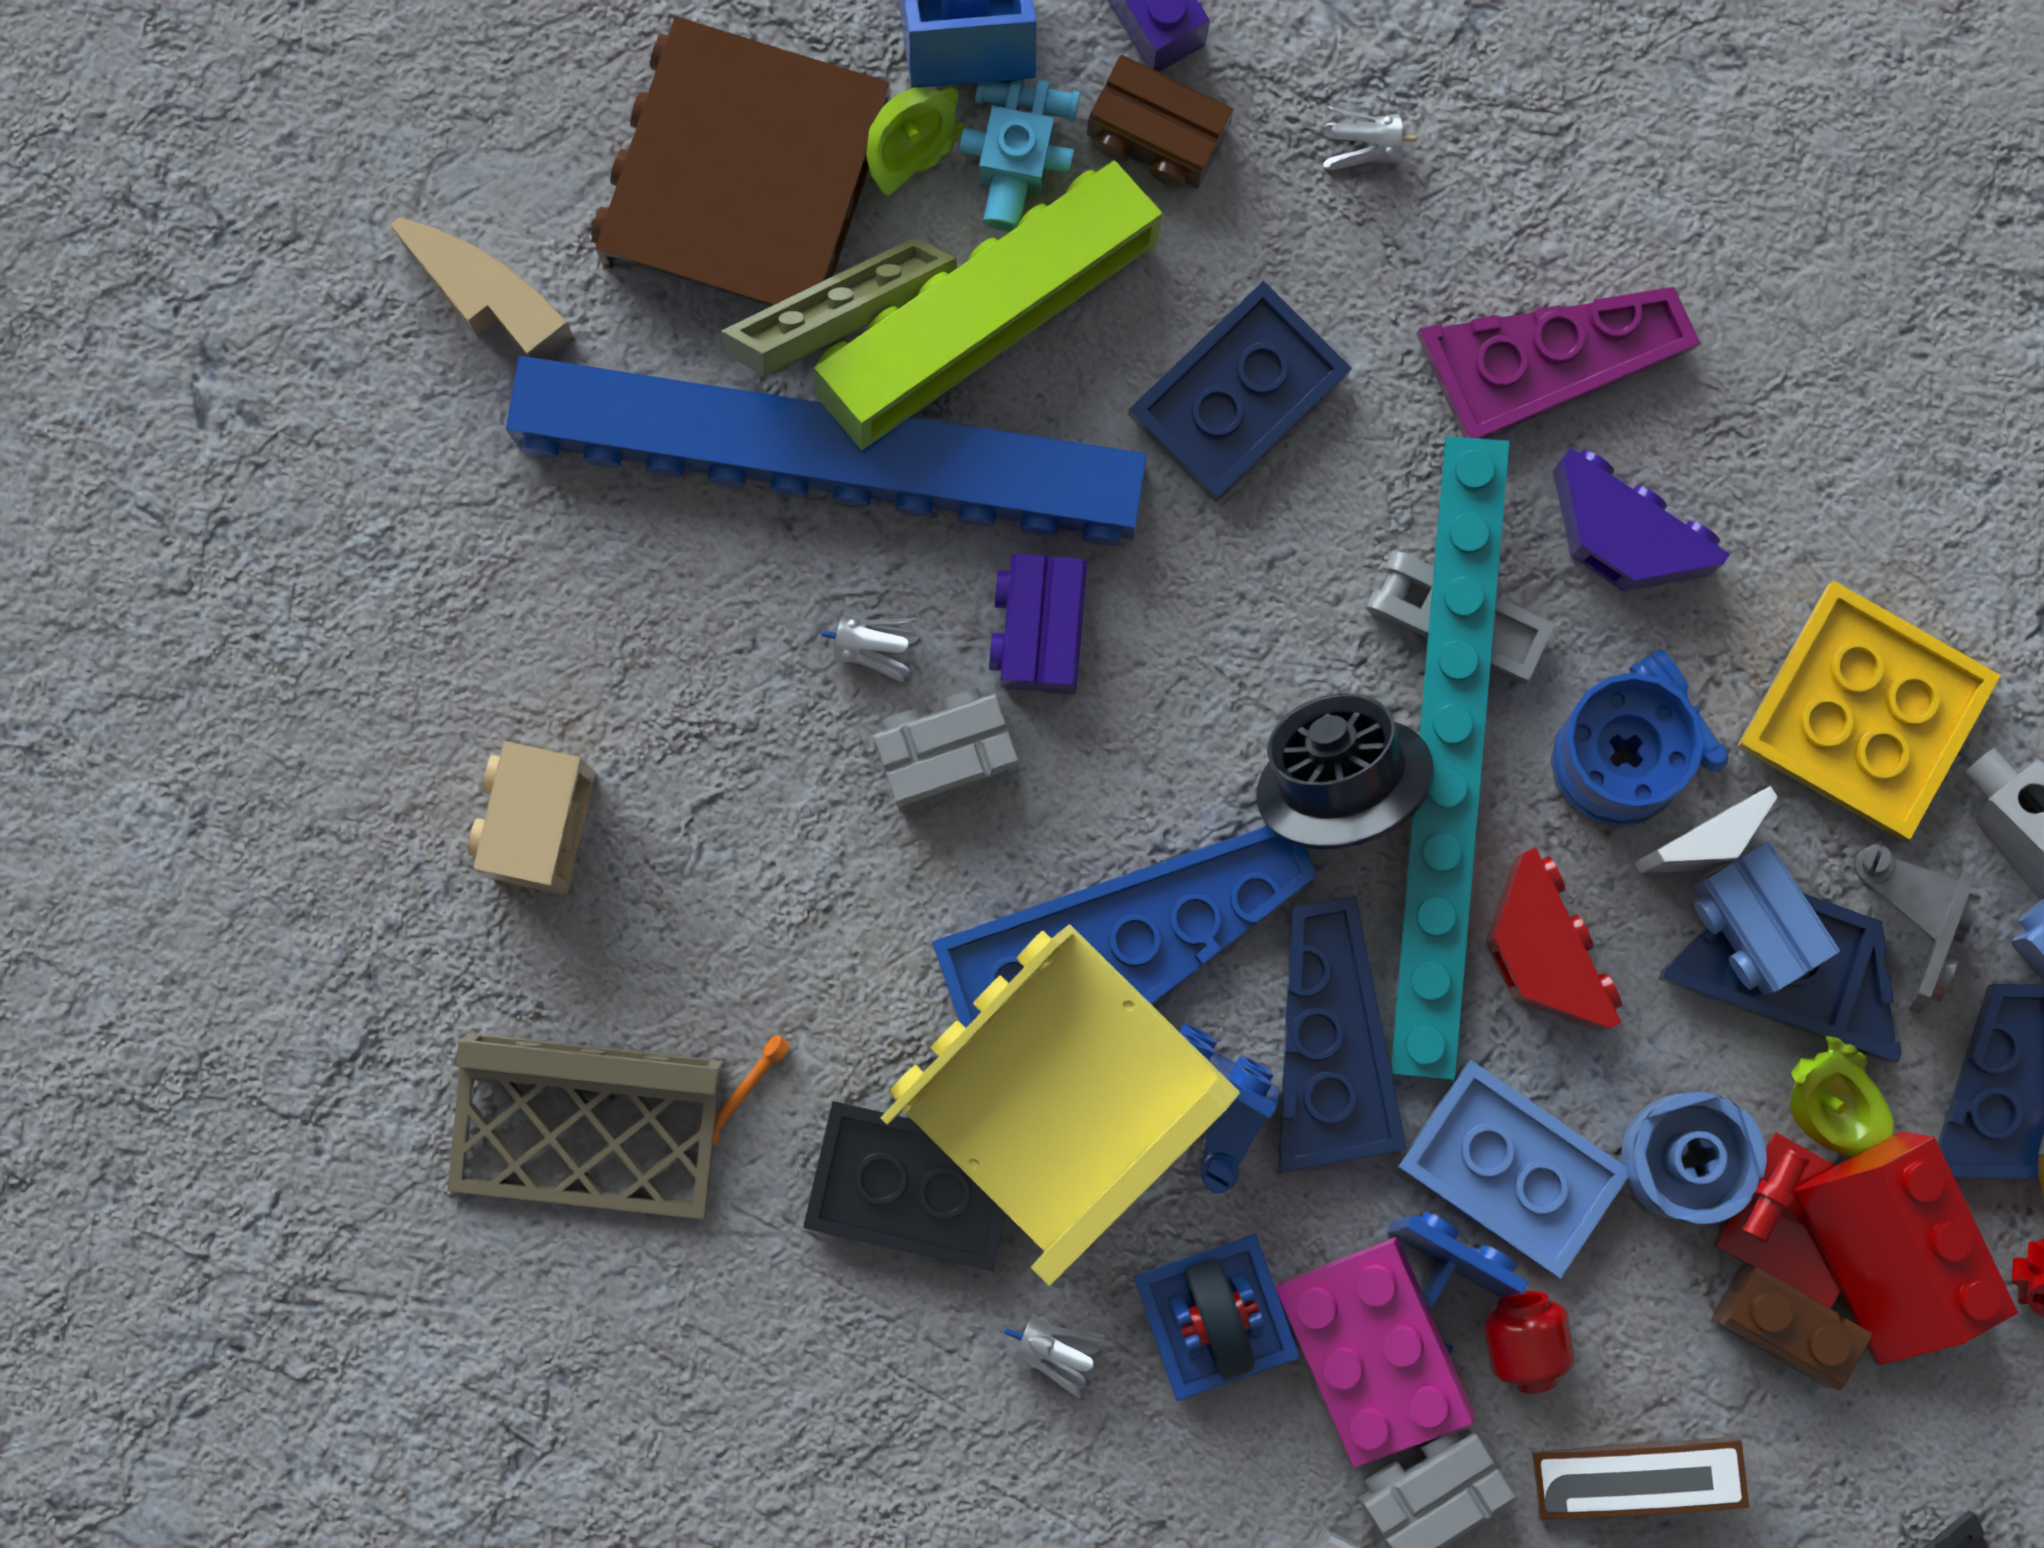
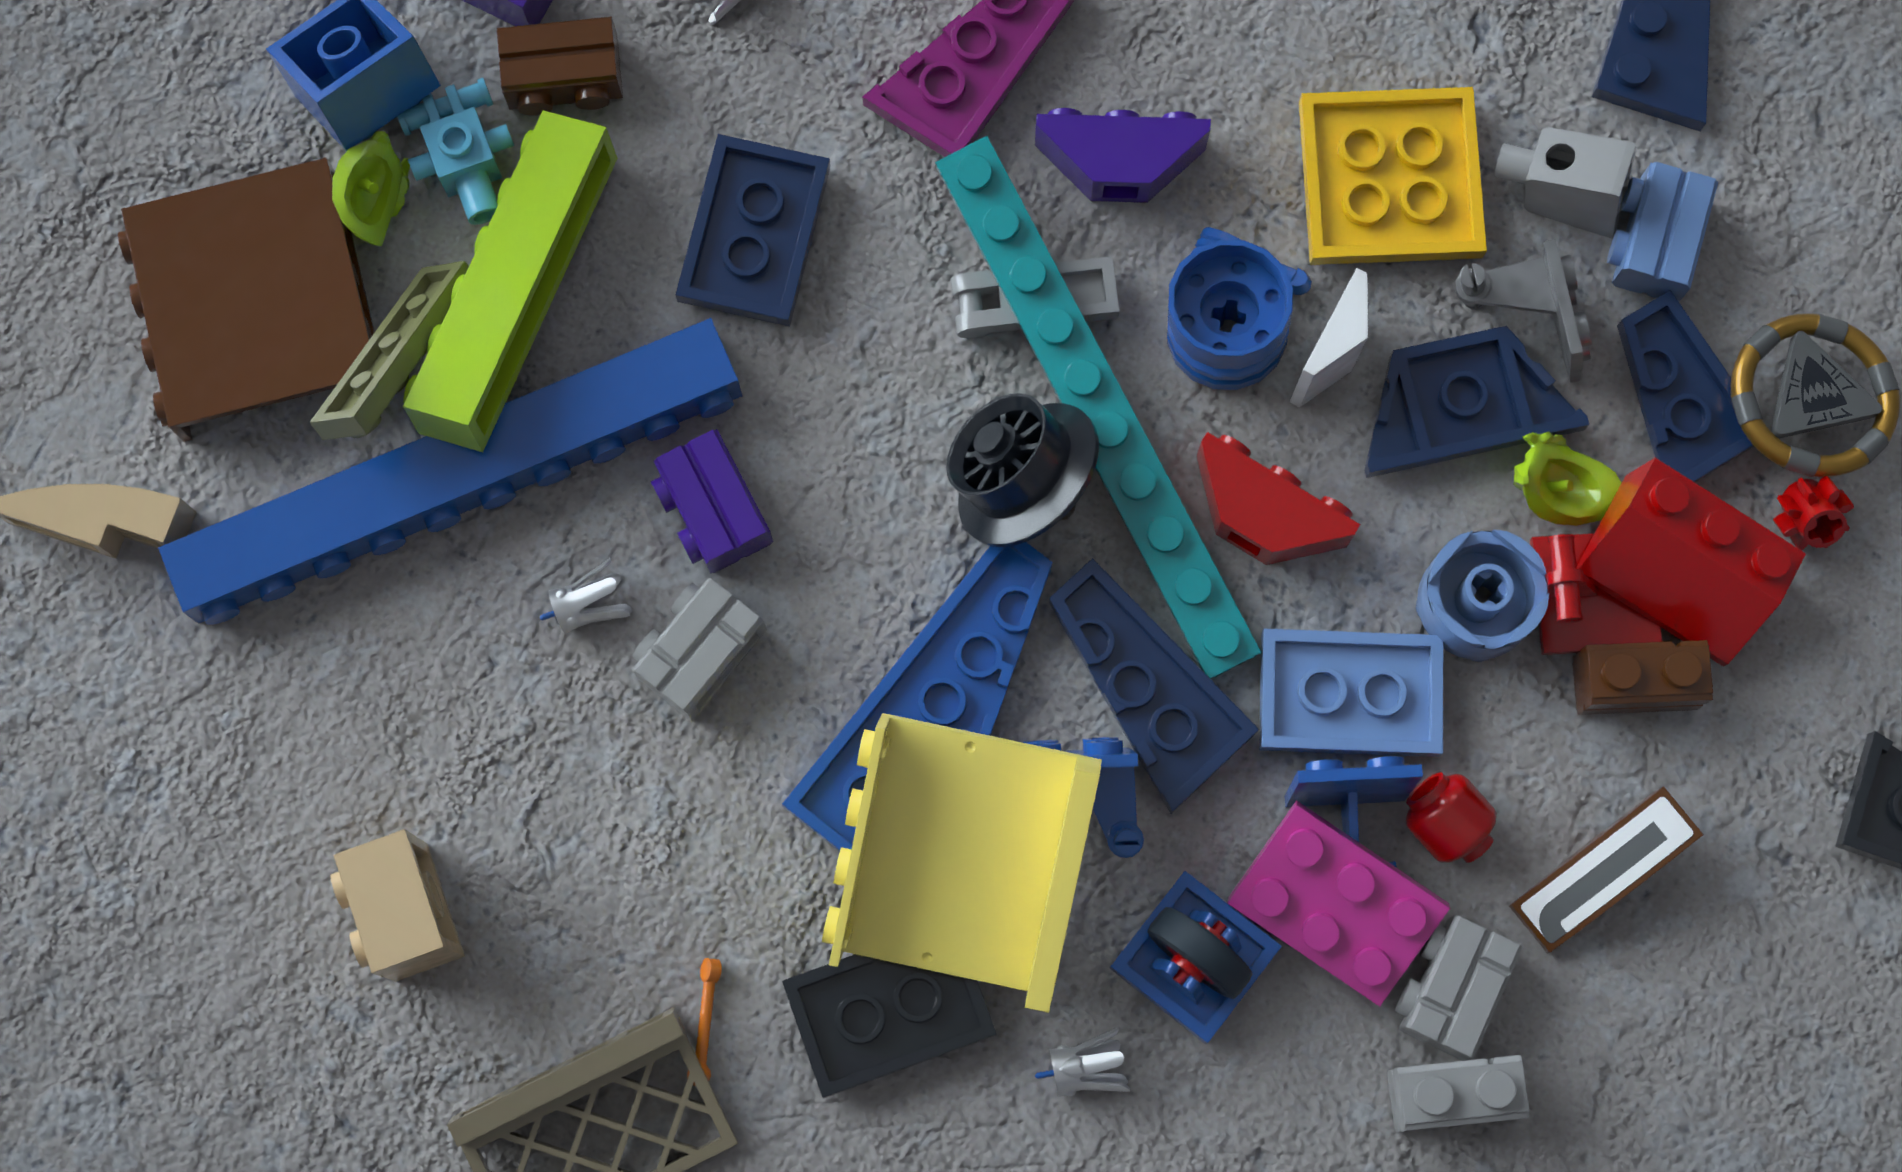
camera: 30 degrees left, 5 degrees down
(1763, 920) = (1417, 377): medium blue brick -> none

